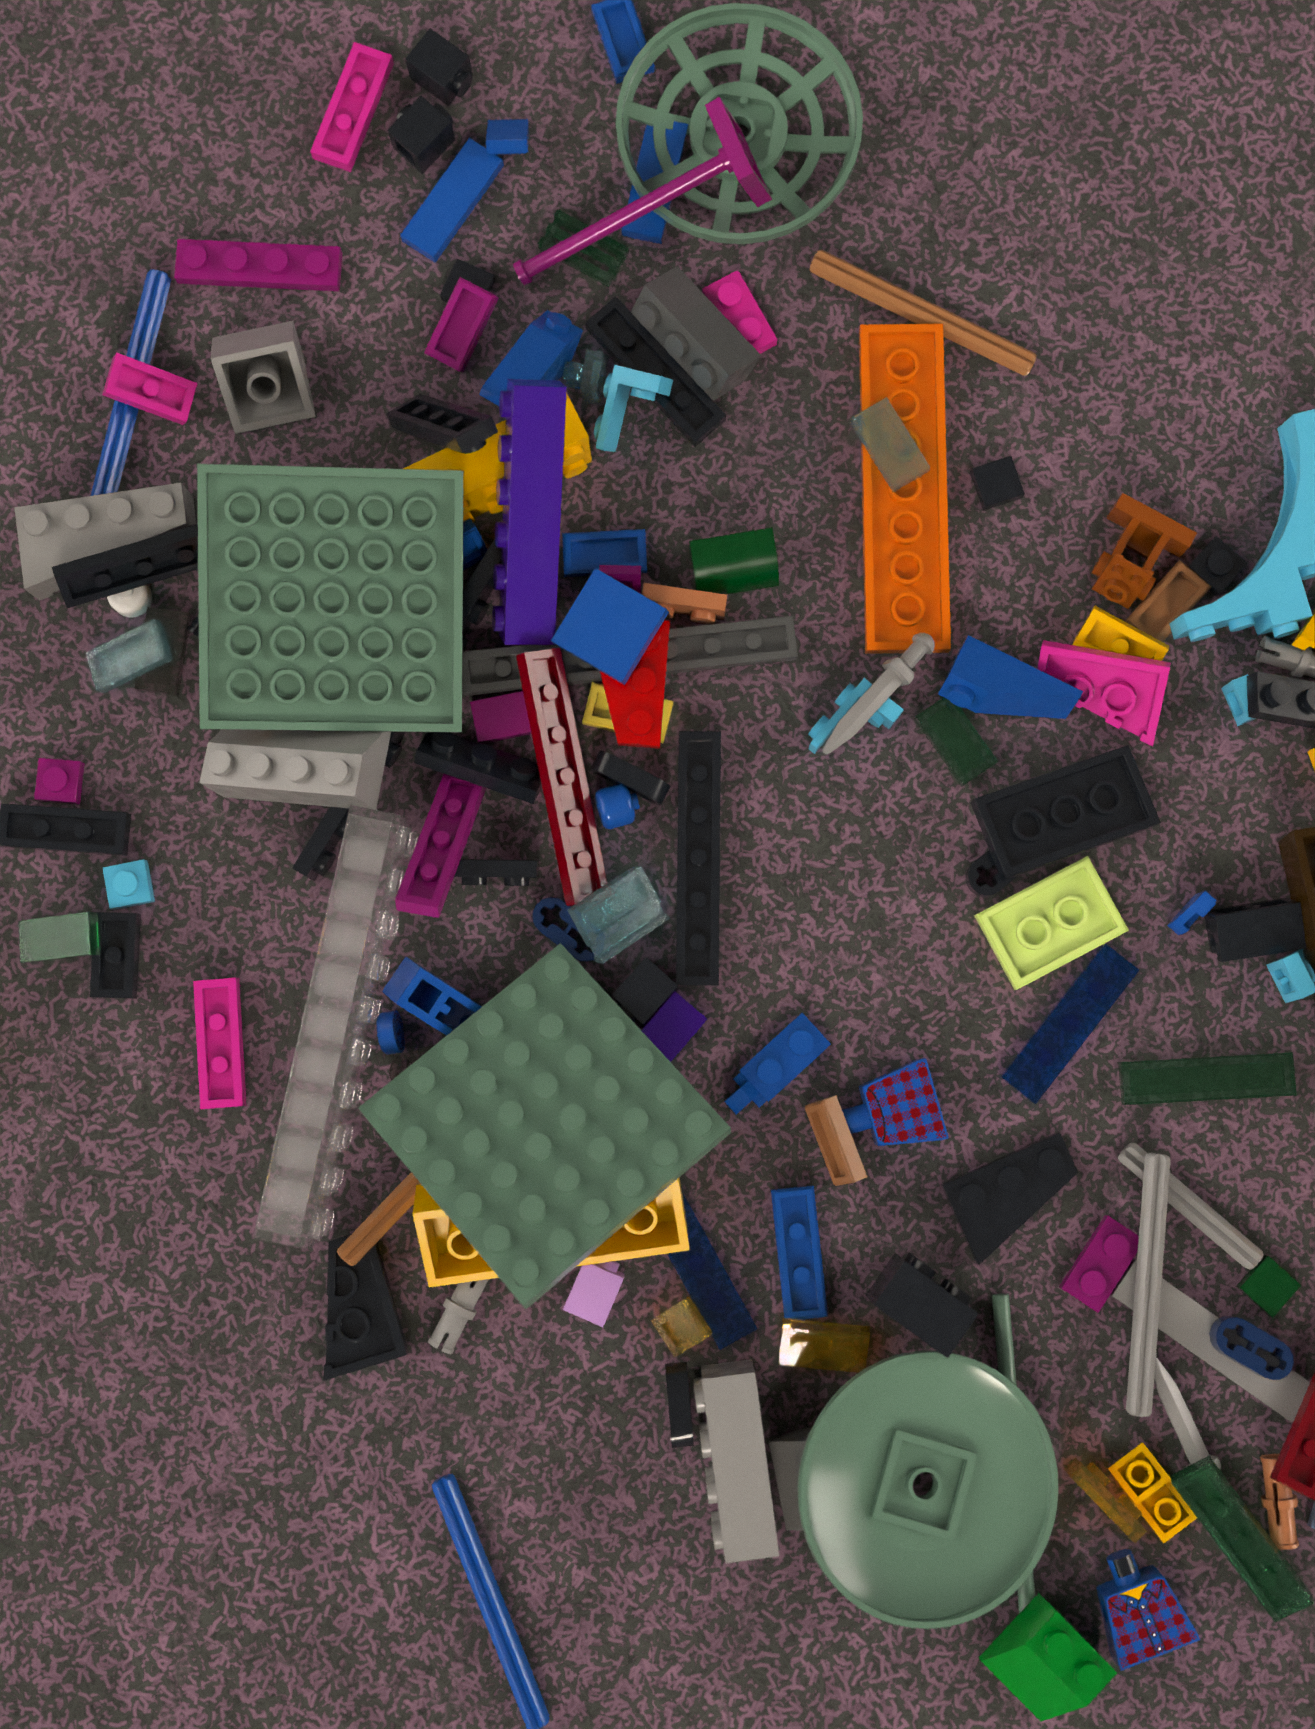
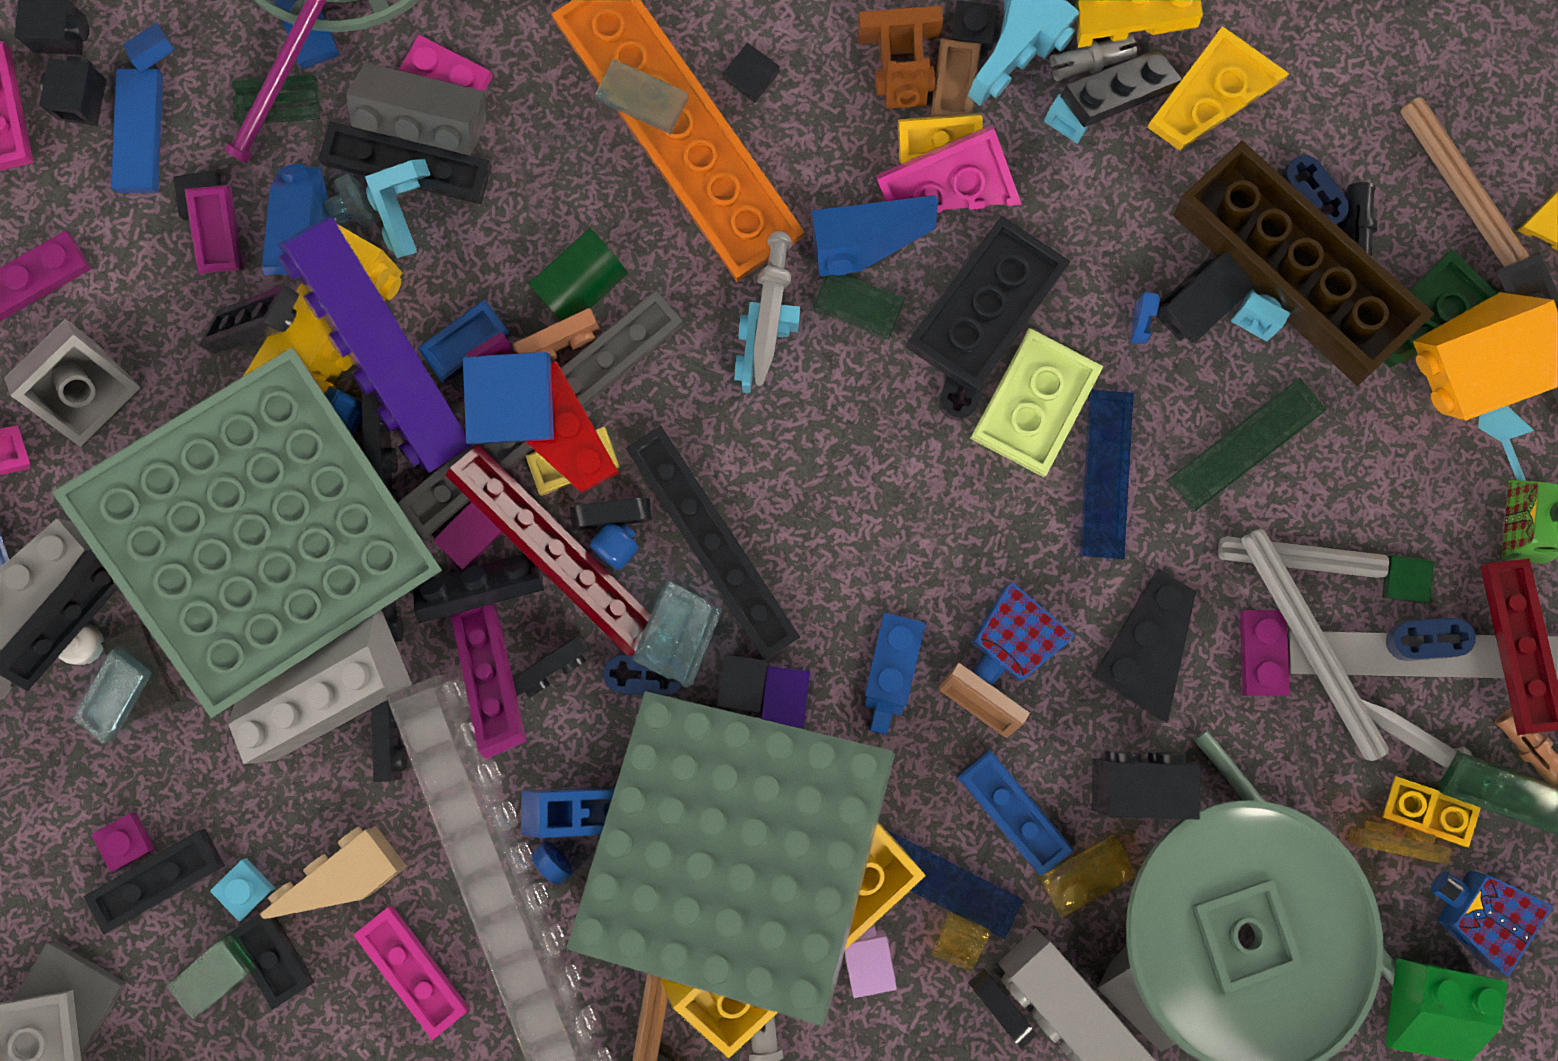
camera: 40 degrees left, 0 degrees up
(223, 930) = (348, 876): none -> tan slope

